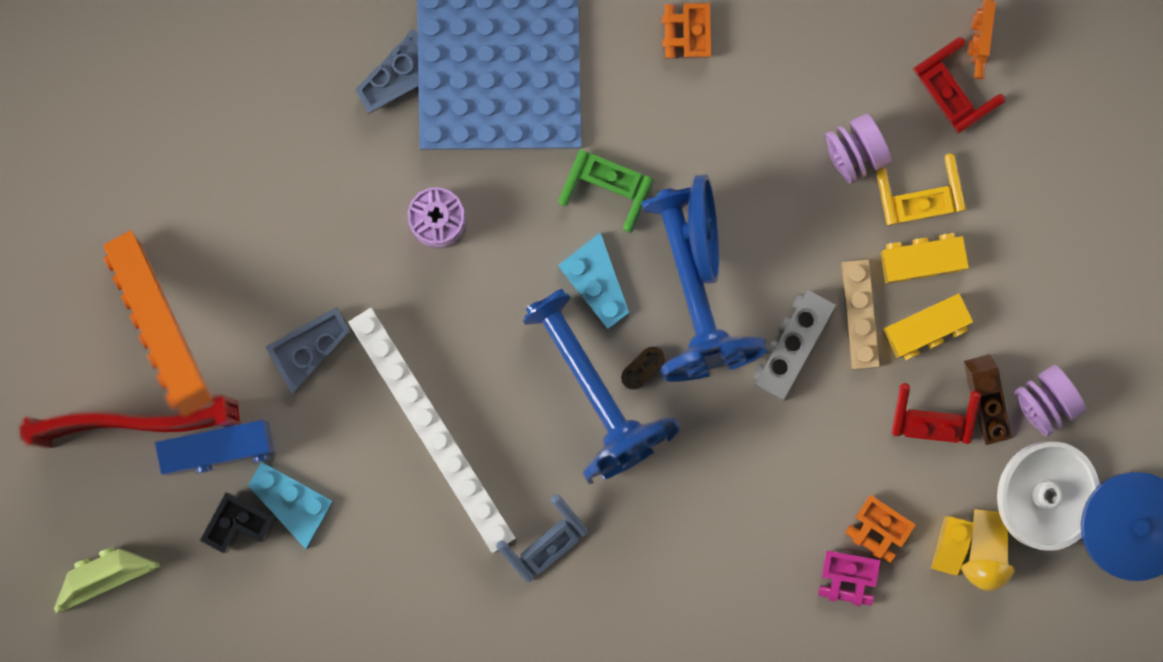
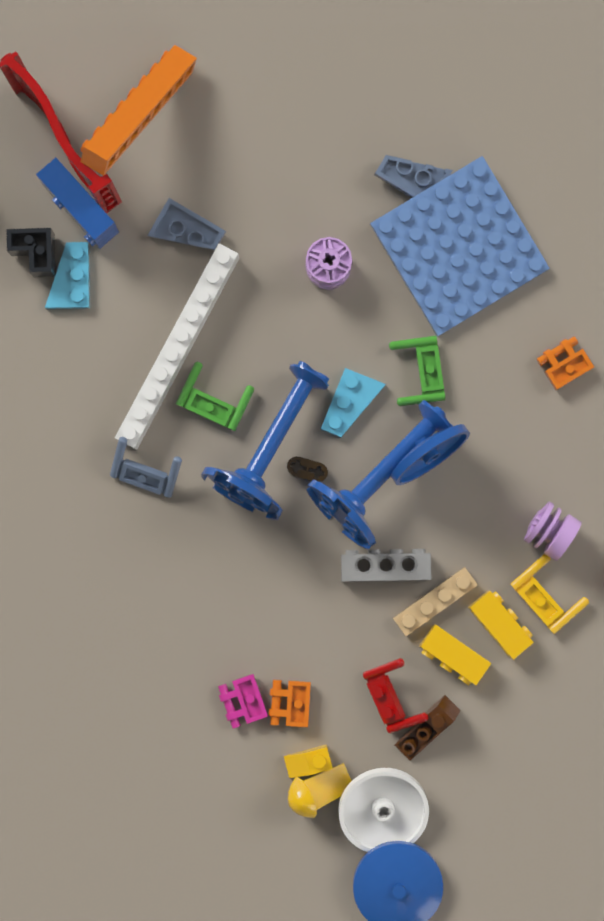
camera: 60 degrees right, 0 degrees up
(516, 432) = (209, 406): none -> bright green plate
(1054, 398) = (453, 773): lavender wheel -> none

